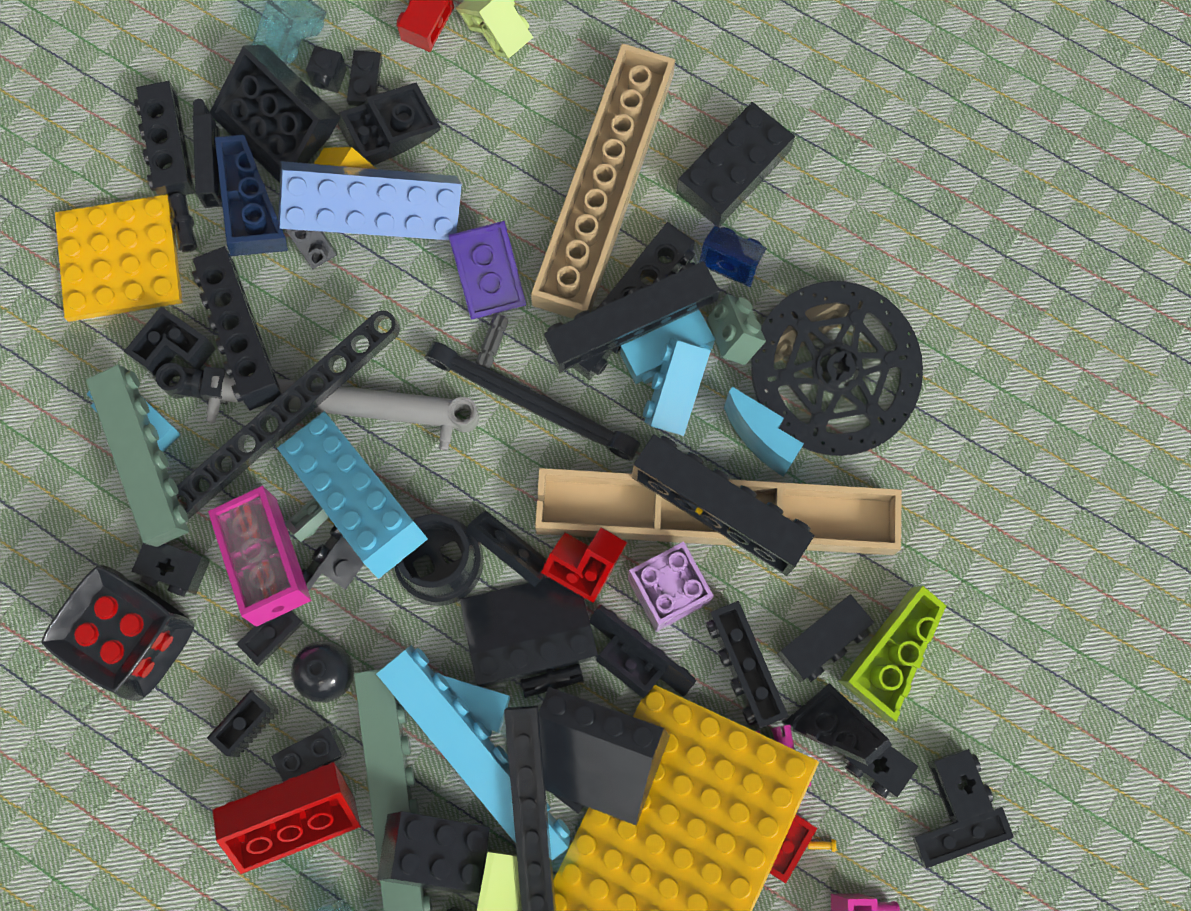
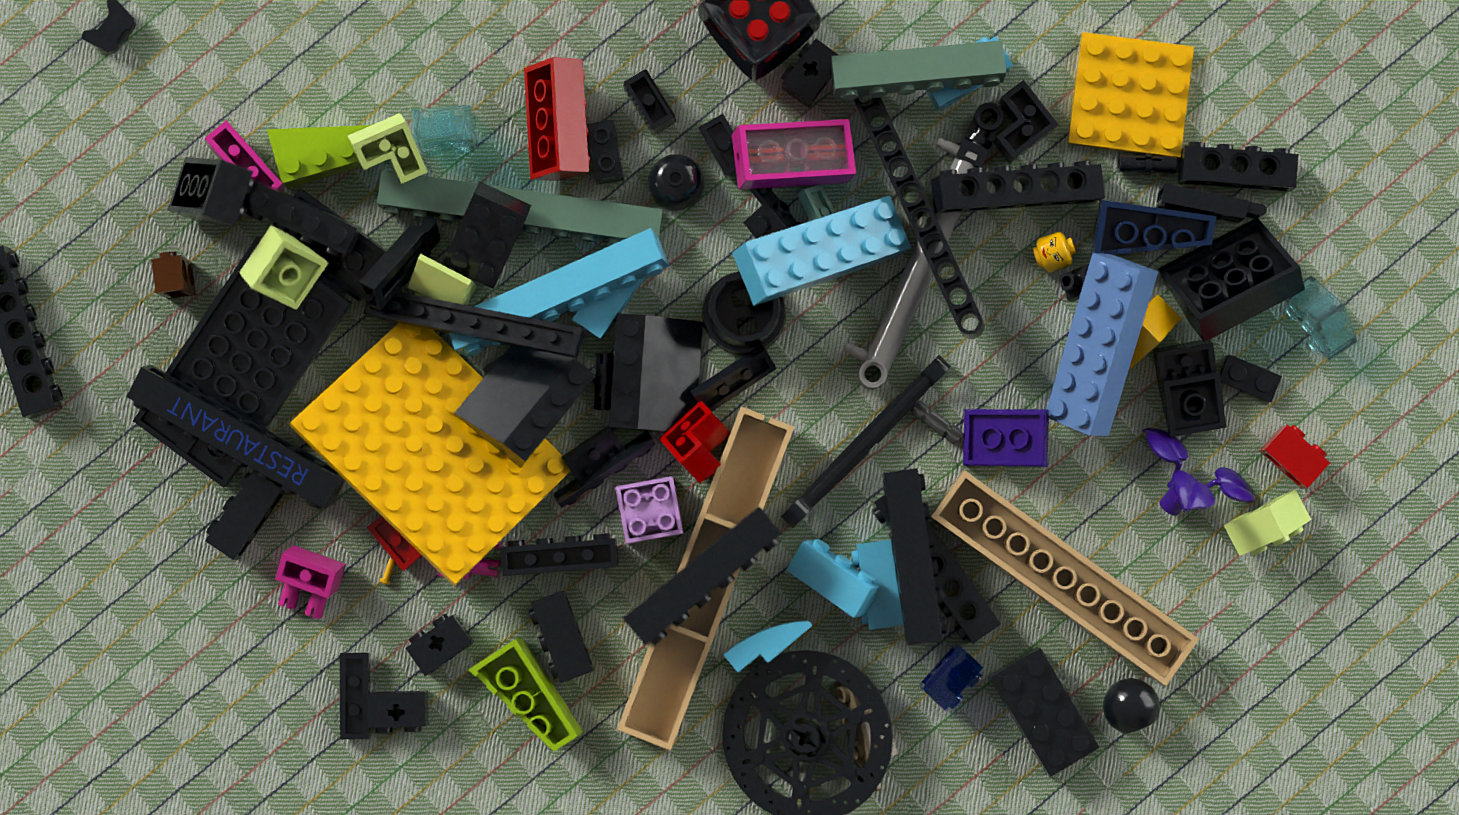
camera: 110 degrees right, 10 degrees up
(291, 280) = (1054, 251): none -> yellow head
(326, 69) = (1265, 342): black brick -> none
(492, 102) = (1186, 491): none -> dark purple plant
(703, 89) = (1131, 705): none -> black helmet
(736, 329) = (871, 651): sand green brick -> none
(839, 726) = (481, 618): black wing -> none

